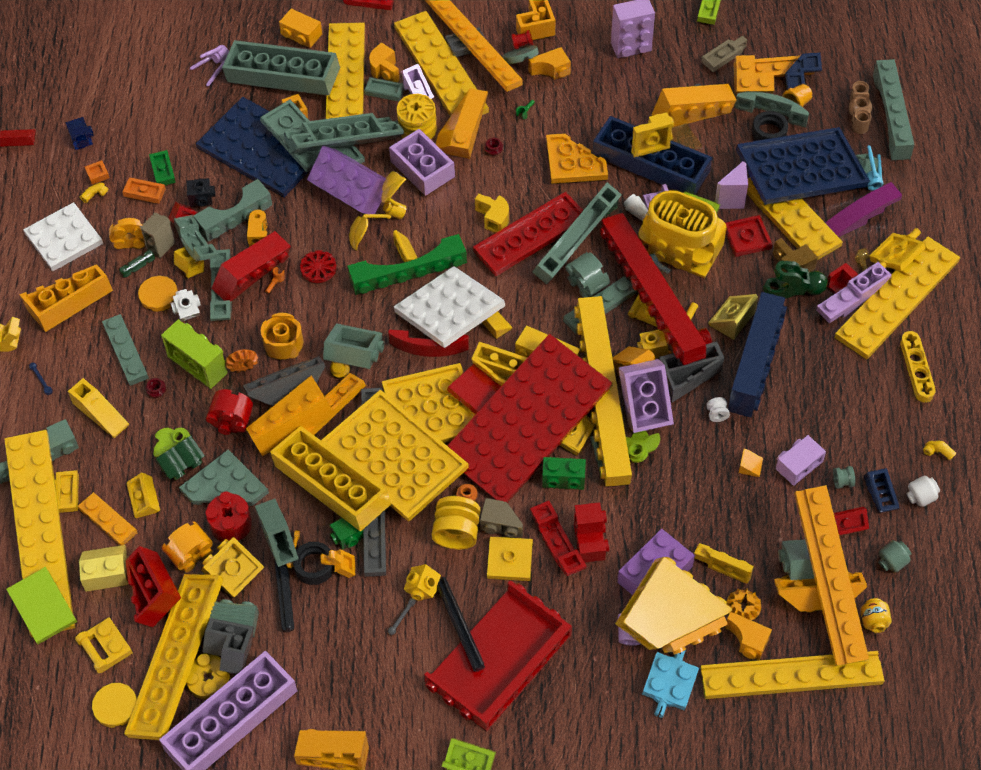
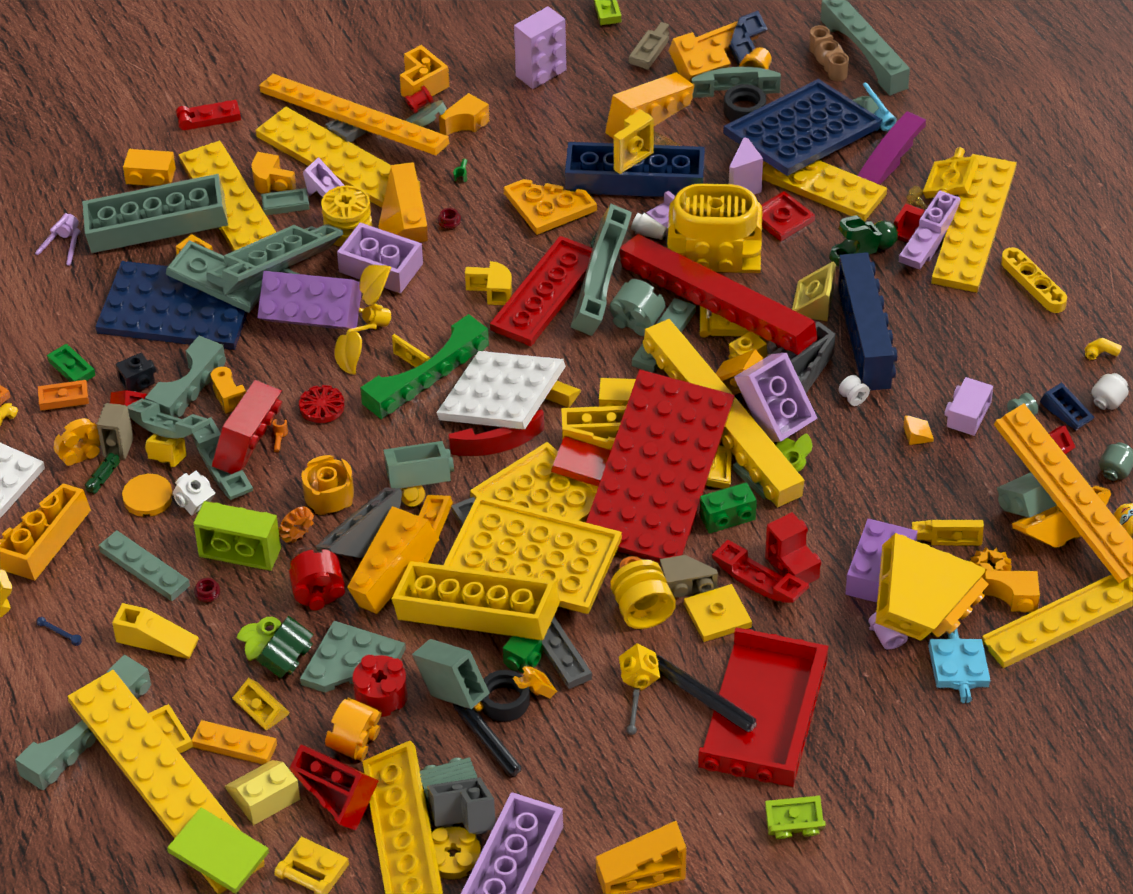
camera: 25 degrees left, 10 degrees down
(234, 565) = (416, 725): yellow plate -> none
(803, 256) = (831, 216): pearl gold brick -> none

